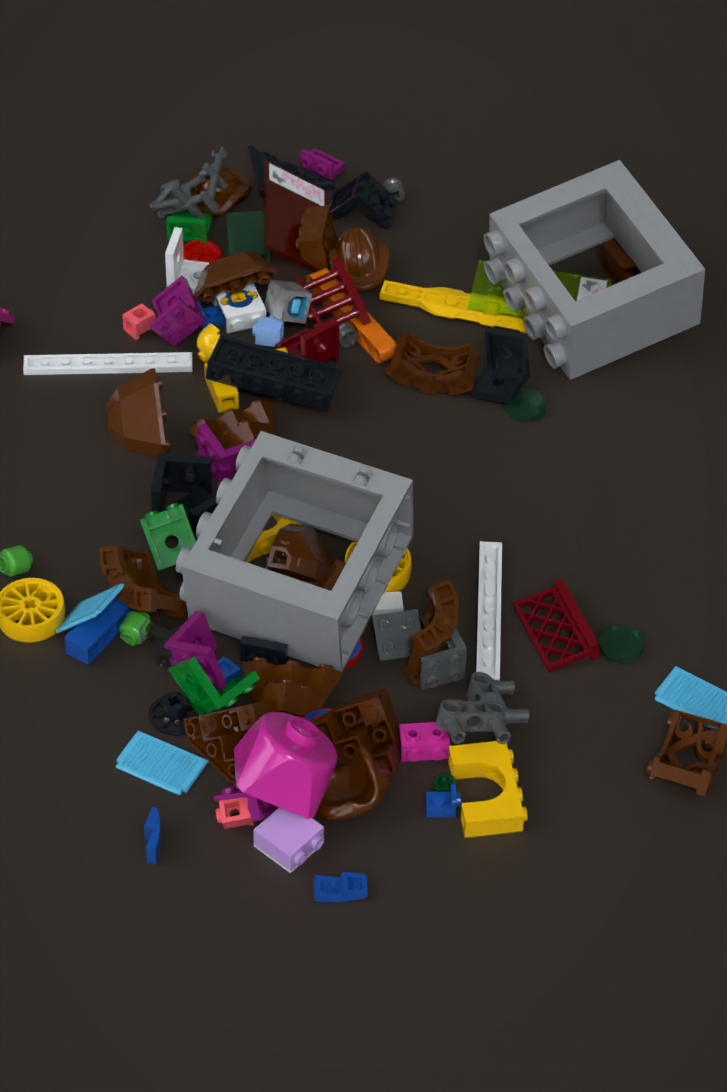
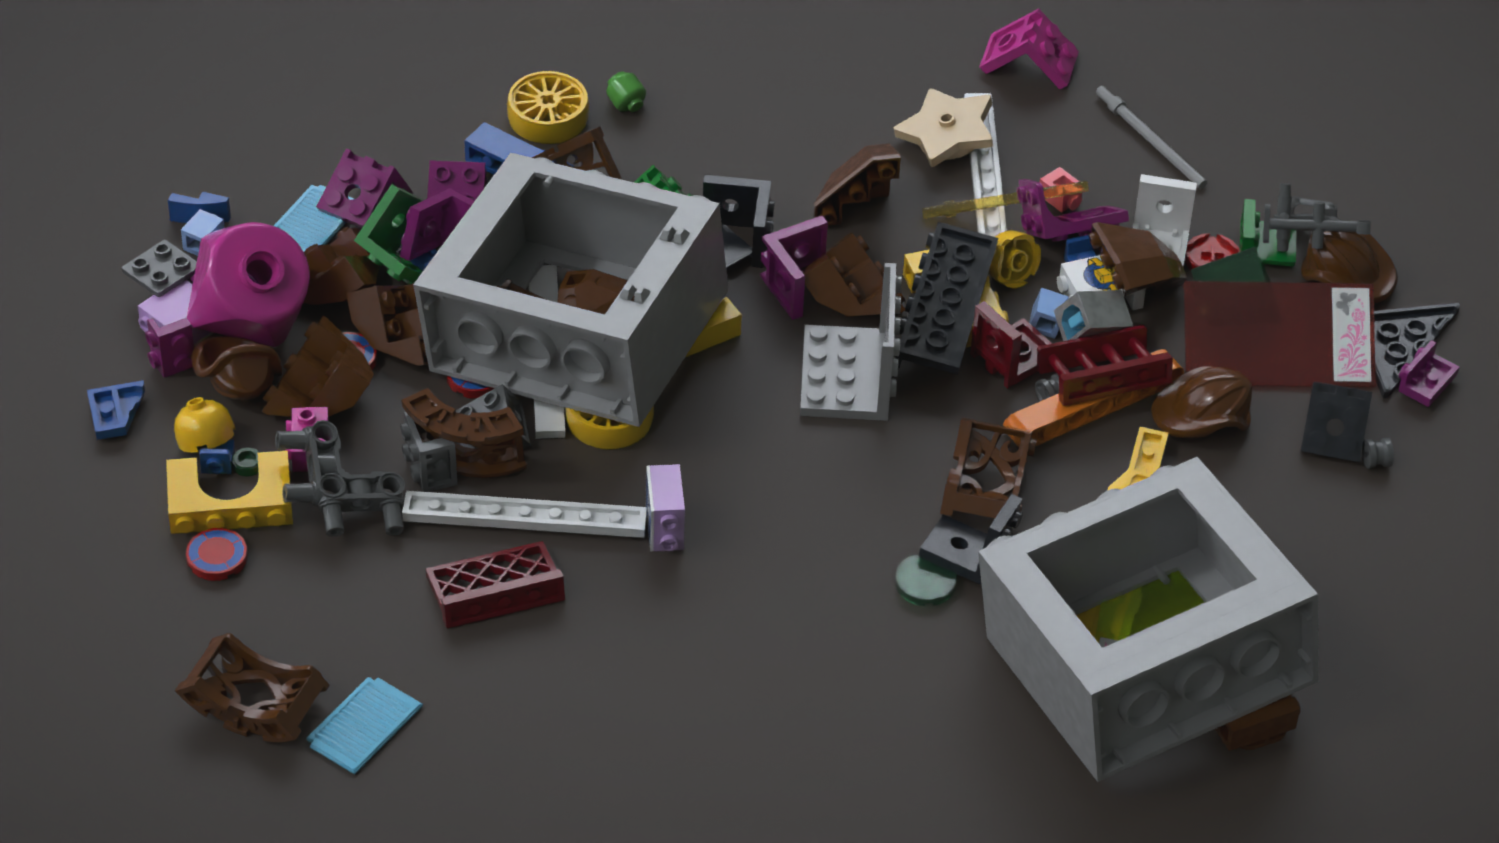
camera: 90 degrees right, 0 degrees up
(41, 291) = (1118, 107): none -> light grey bar
(70, 373) = (948, 126): none -> tan plate
(89, 608) = (526, 138): medium azure window -> none
(127, 661) = (462, 177): none -> magenta bracket
(141, 707) = (362, 174): none -> magenta bracket
(154, 358) = (951, 208): none -> clear yellow bar
(187, 828) = (197, 227): none -> light blue brick
(243, 843) = (161, 268): none -> dark grey bracket
(316, 236) = (1240, 347): reddish brown slope -> none
(329, 409) = (852, 367): none -> light grey bracket
(335, 889) = (106, 362): blue slope -> none
(336, 831) = (170, 346): none -> magenta bracket
(397, 875) = (114, 408): none -> blue wing
(423, 806) = (203, 424): none -> yellow cylinder
(488, 523) = (665, 507): none -> lavender piece
(546, 796) = (216, 554): none -> tile
(621, 644) = (464, 647): clear green tile -> none

